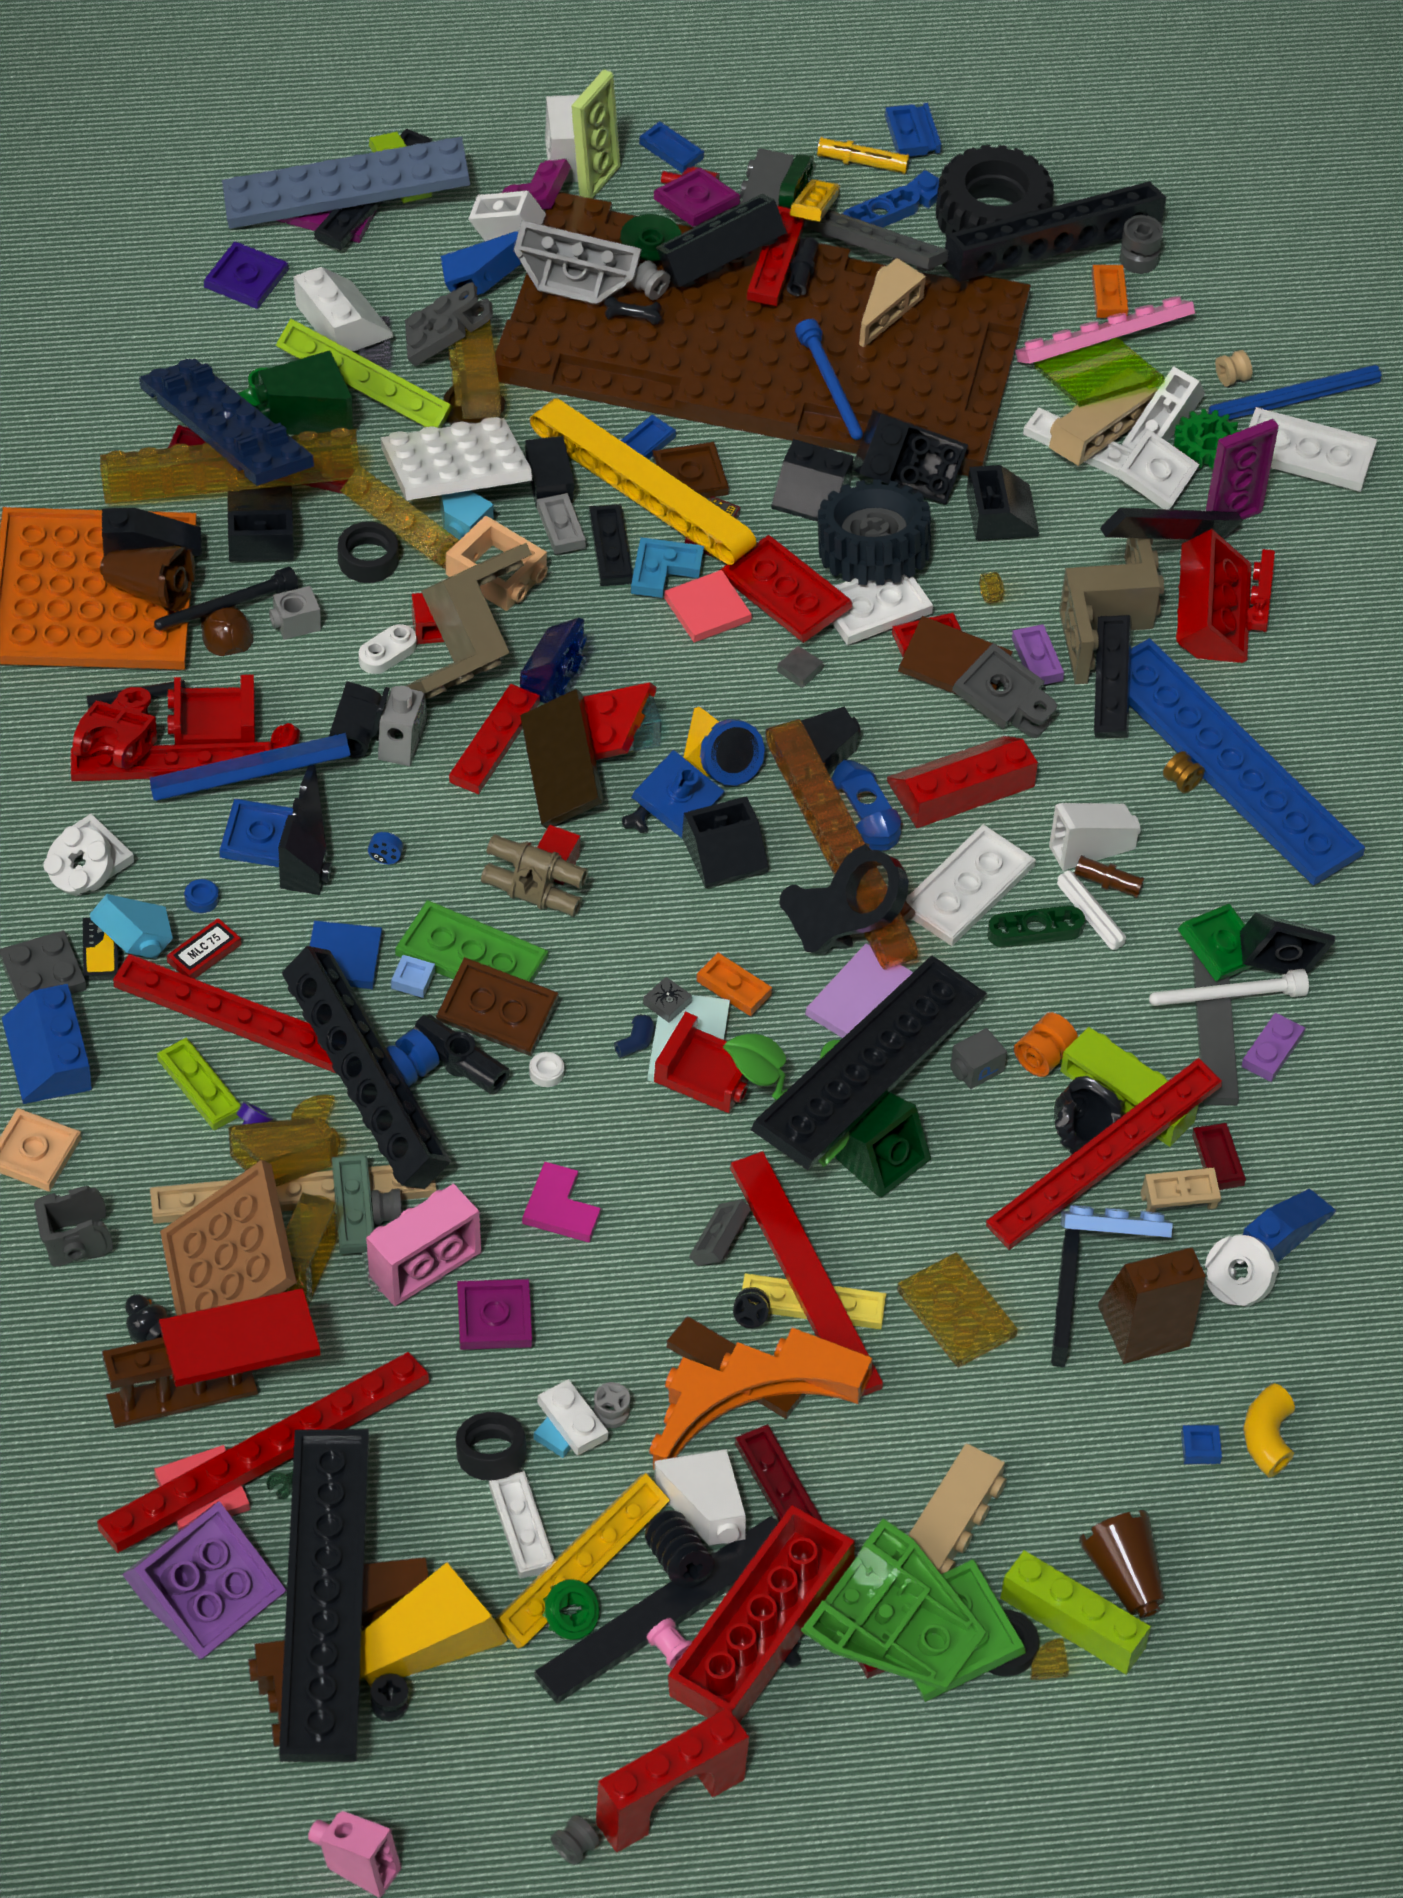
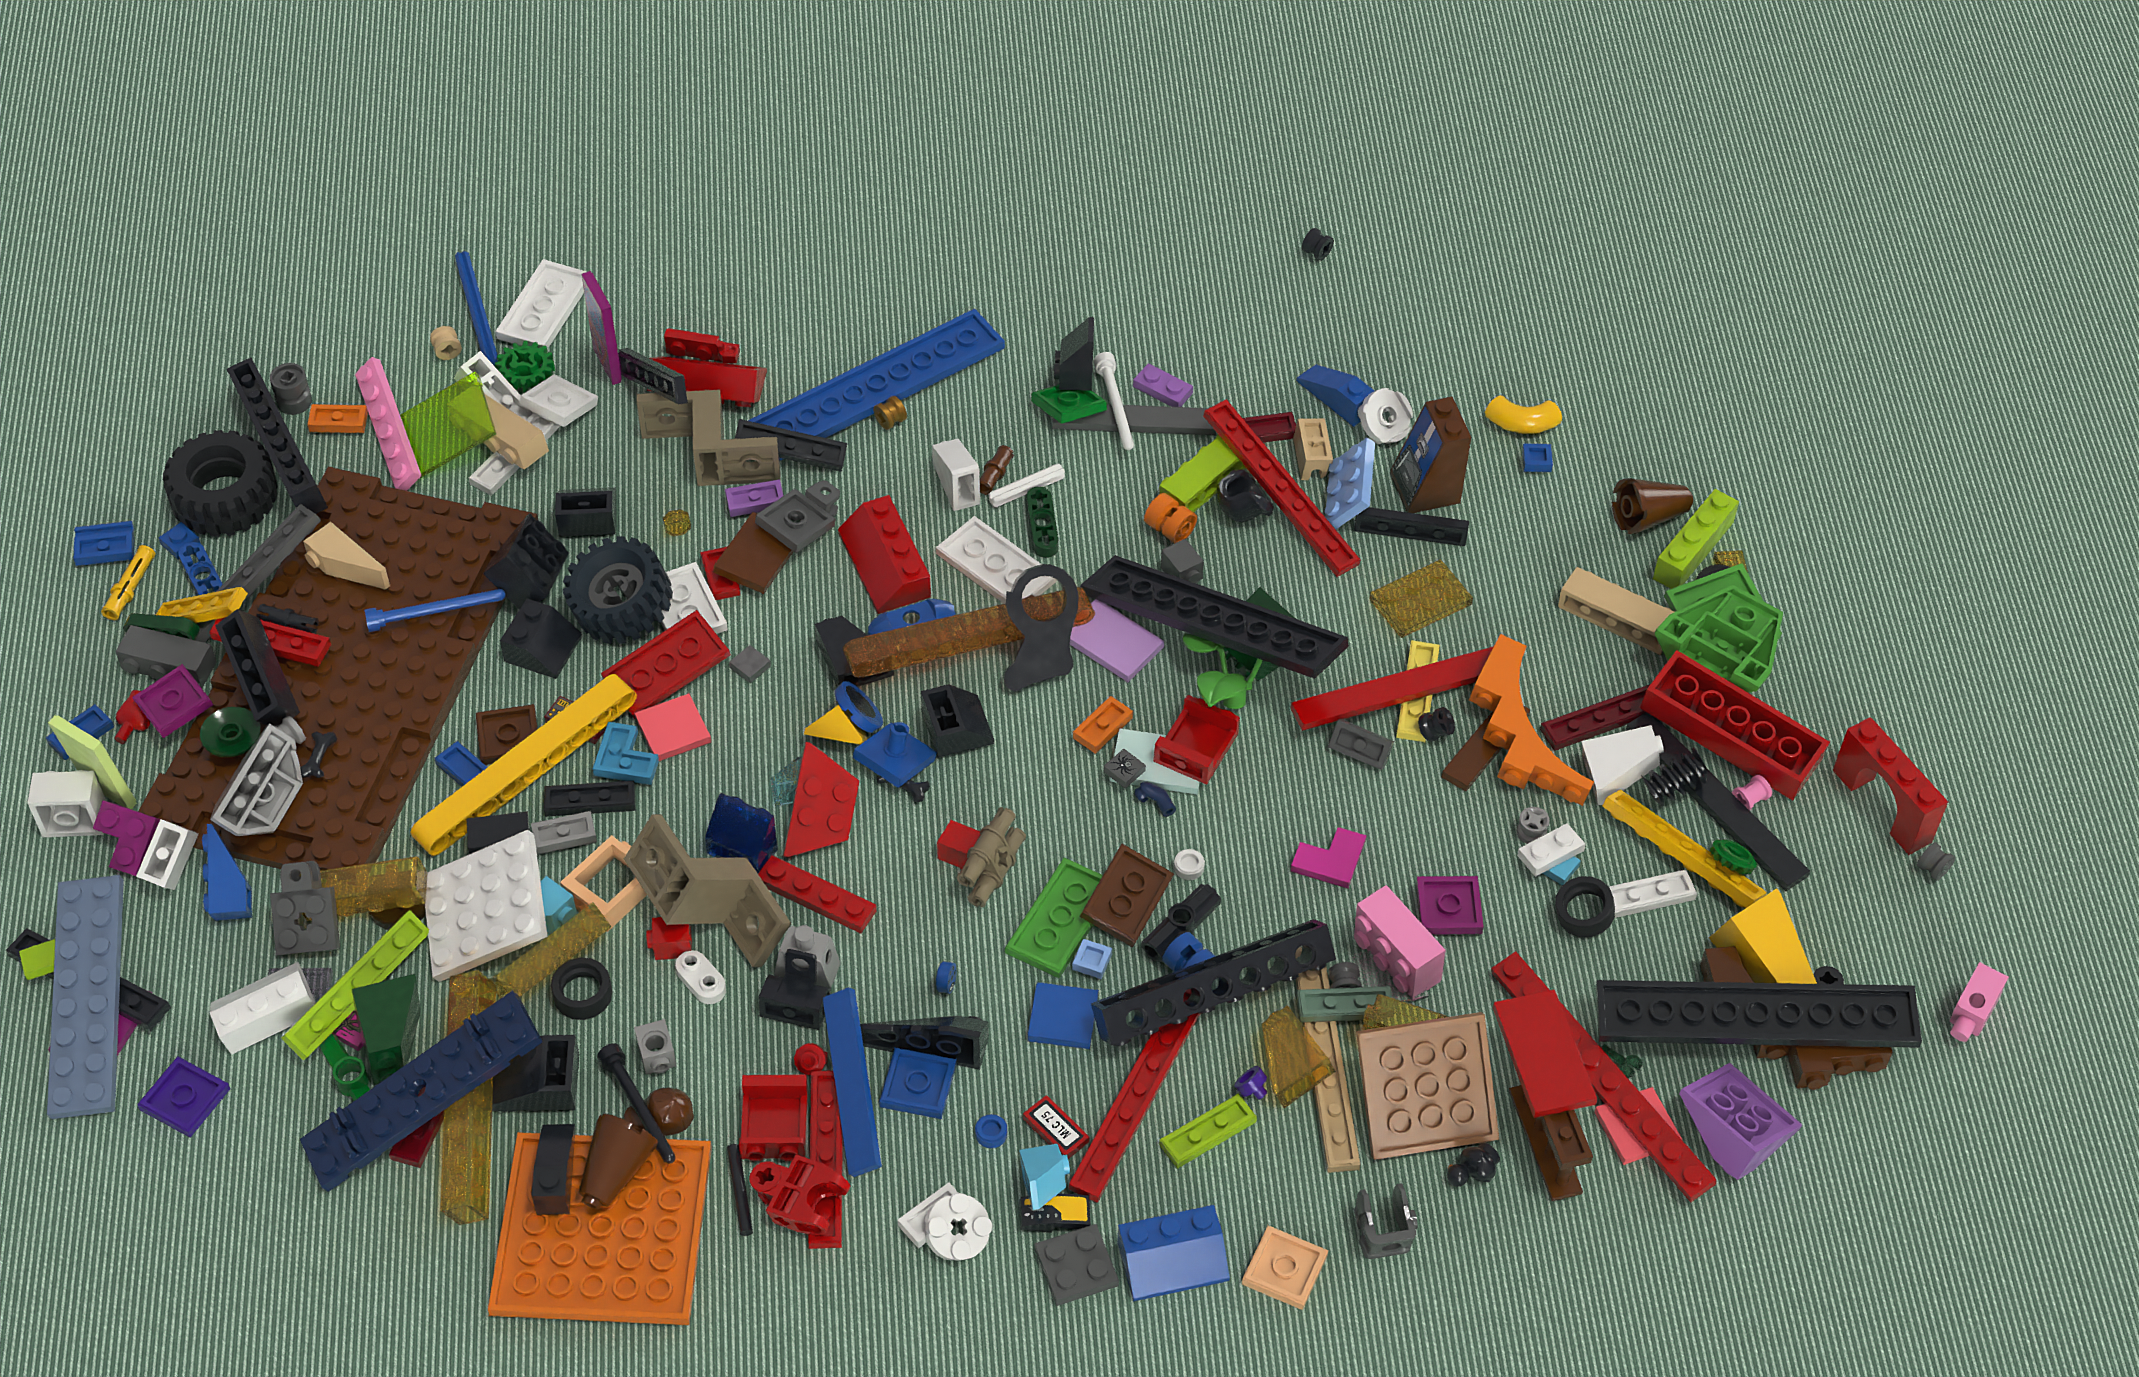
camera: 85 degrees left, 0 degrees up
(315, 1107) = (1239, 1038): clear yellow tile -> none
(561, 758) = (857, 833): dark brown tile -> none

